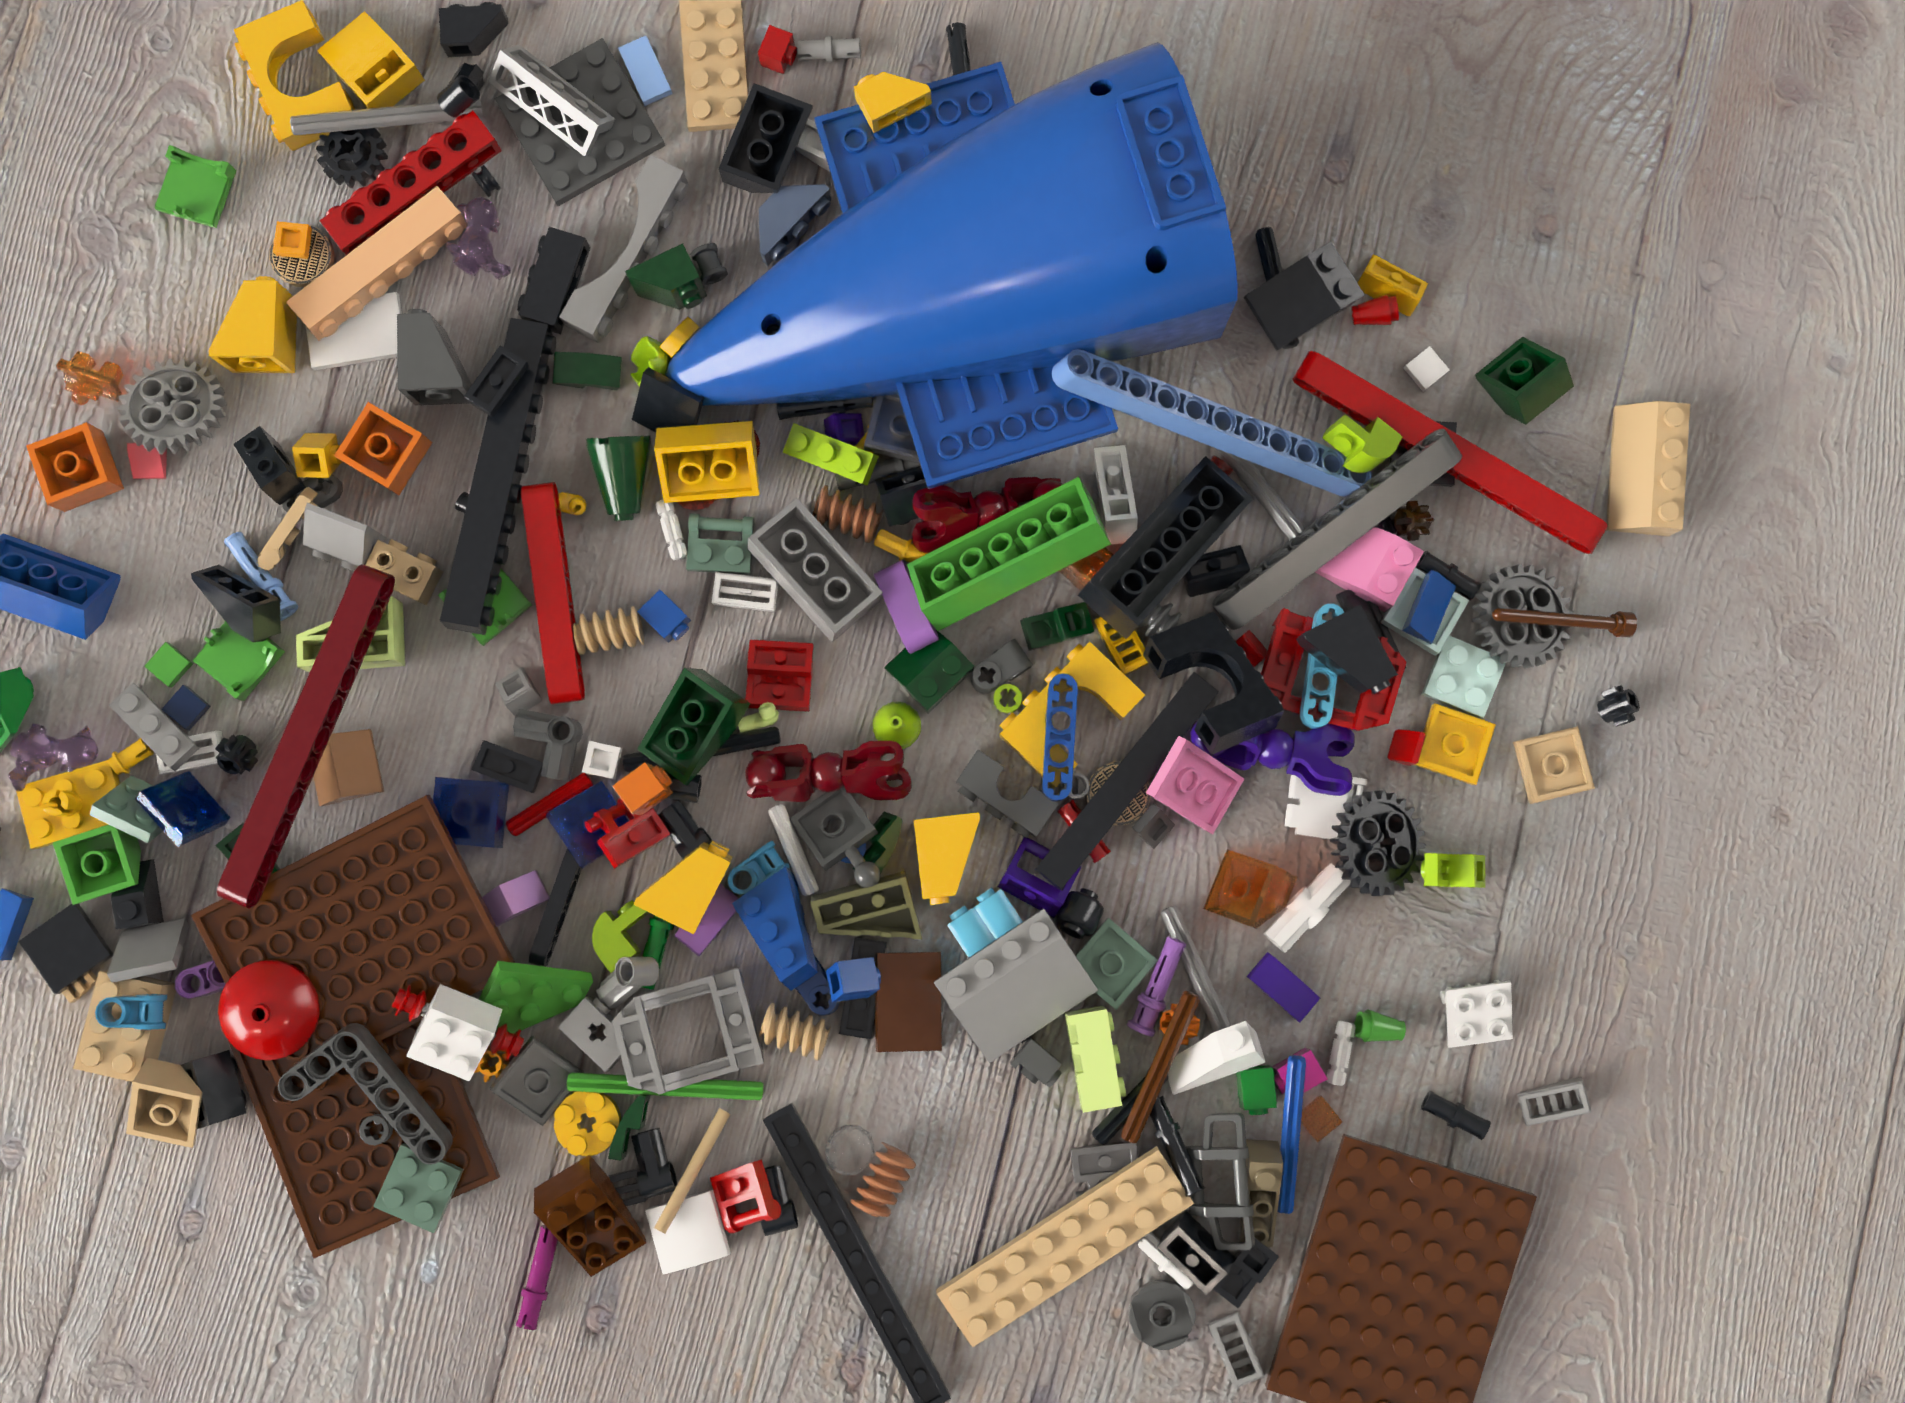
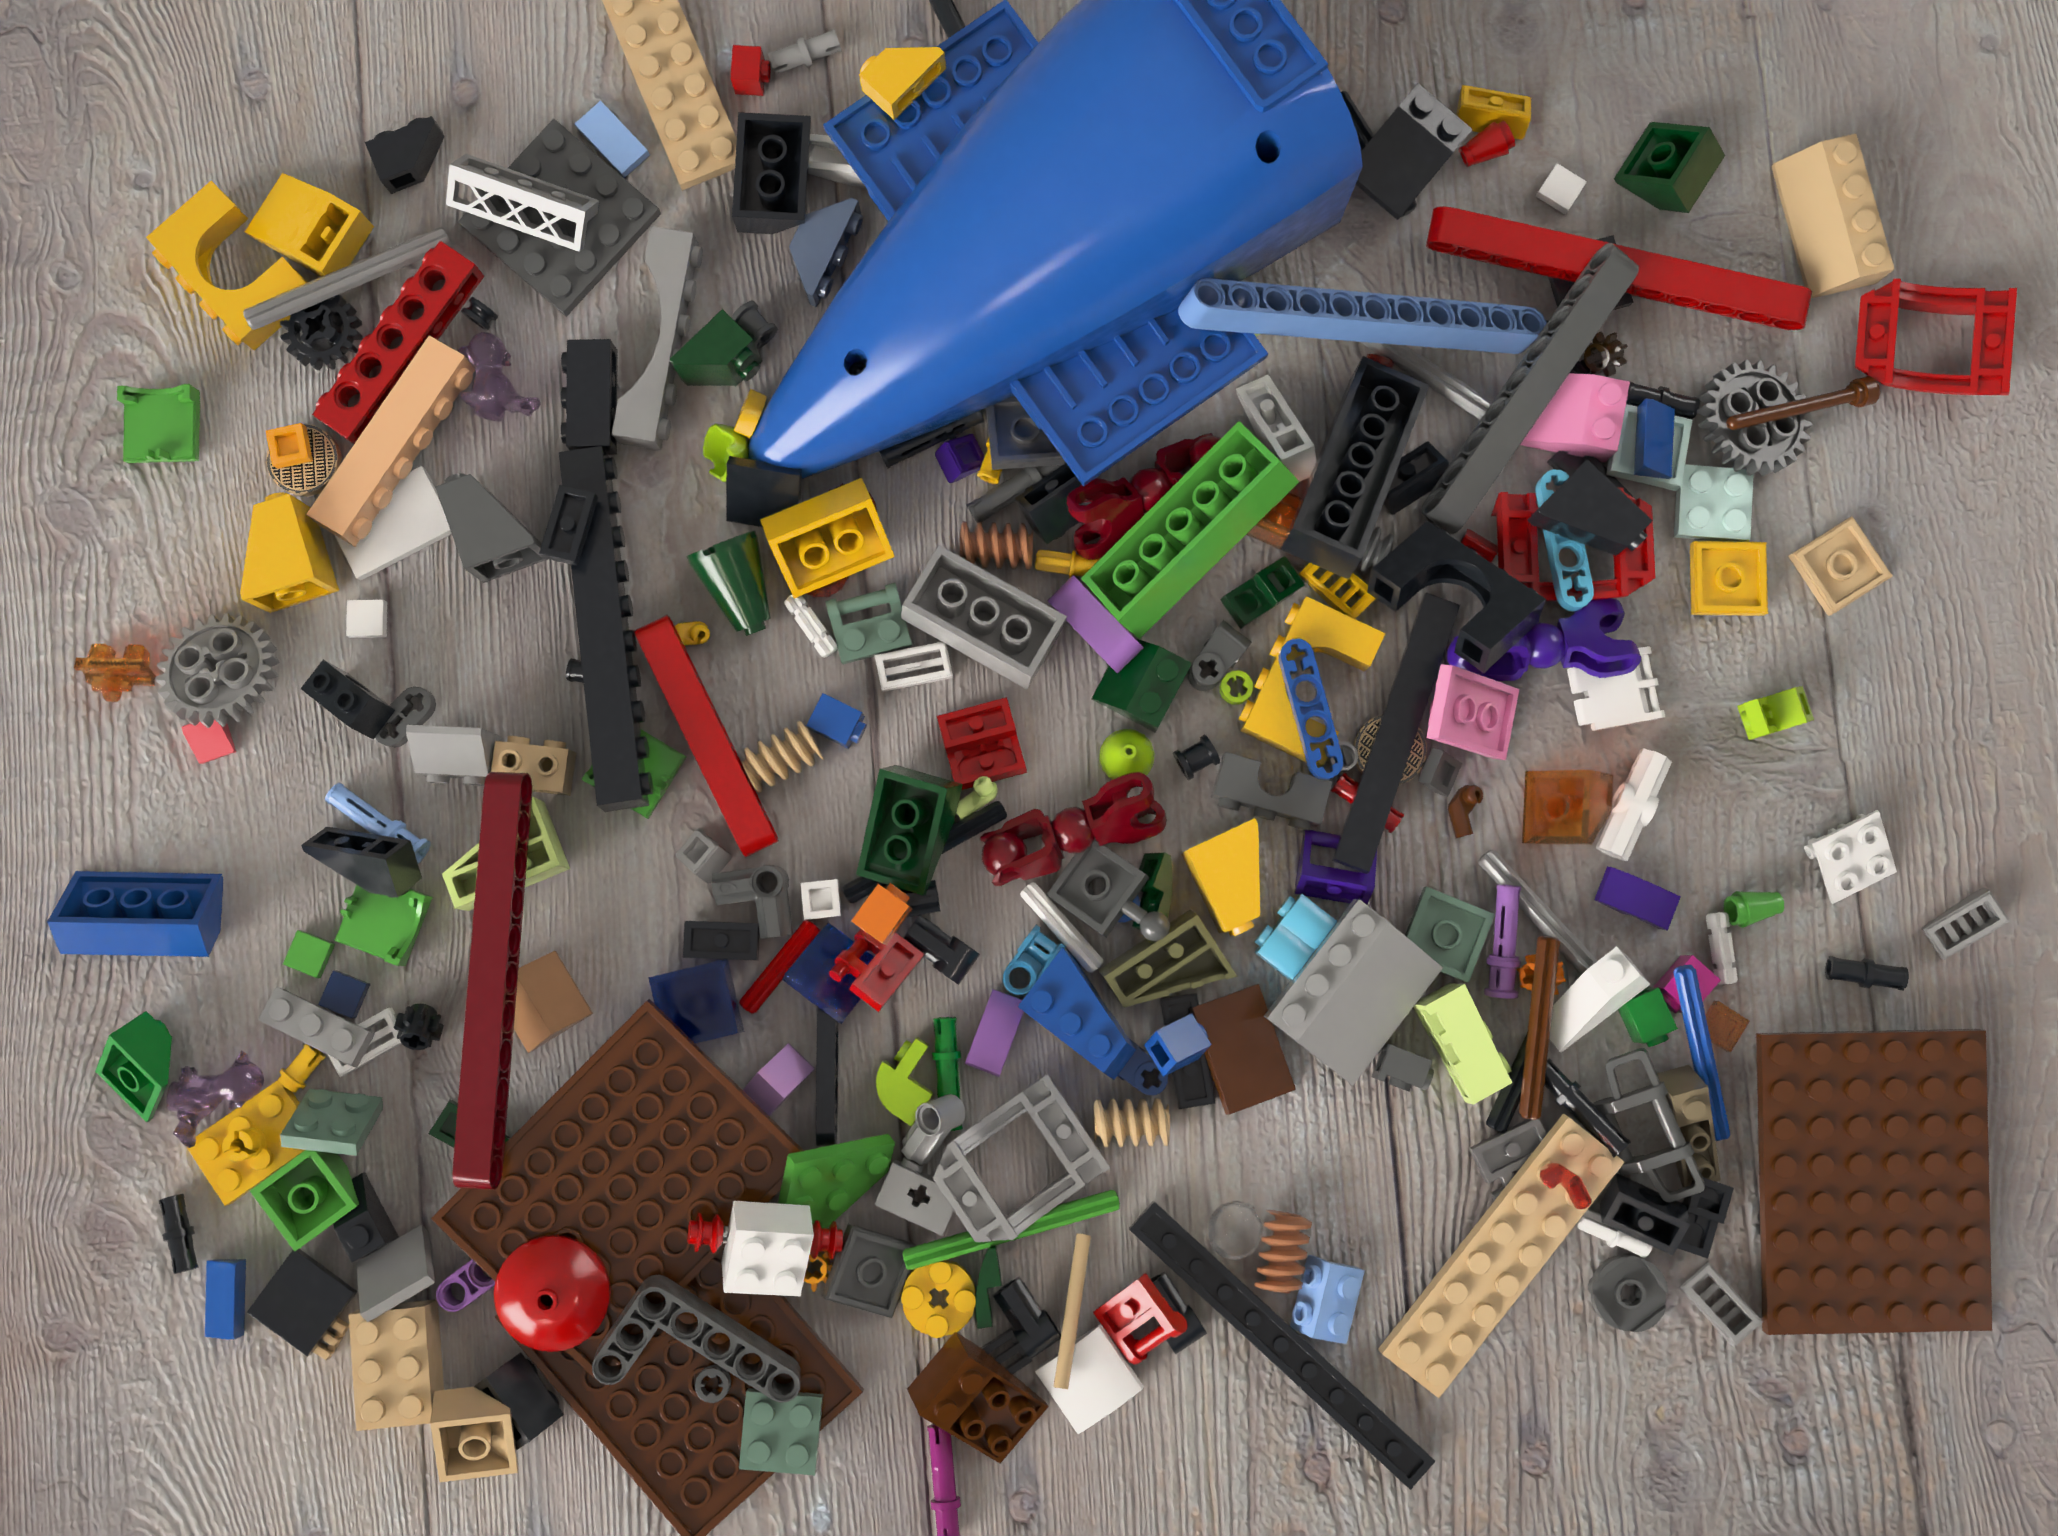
camera: 20 degrees left, 0 degrees up
(75, 467) = (132, 772): orange brick -> none
(138, 1011) = (410, 1345): dark azure piece -> none
(182, 808) = (380, 1105): clear blue plate -> none
(286, 531) = (391, 765): tan hinge -> none
(308, 403) = (366, 619): none -> white tile
(315, 455) = (396, 671): yellow brick -> none
(383, 448) = (467, 640): orange brick -> none
(461, 90) = (421, 223): black piece -> none
(586, 369) = (659, 482): dark green slope -> none
(687, 887) = (967, 1004): yellow slope -> none
(830, 454) = (957, 486): lime plate -> none
(907, 1234) = (1327, 1300): none -> light blue bracket
(954, 745) = (1196, 757): none -> black bush
(1080, 913) = (1395, 892): black head -> none
(1141, 1206) = (1573, 1184): none -> clear red arm
(1161, 861) = (1460, 808): none -> reddish brown arm
(1361, 446) = (1527, 289): lime brick -> none
(1378, 843) = (1686, 710): black gear -> none
(1406, 747) = (1679, 598): red slope -> none
(1618, 705) = (1888, 479): black gear -> none
(1745, 618) = (1990, 345): none -> red wedge

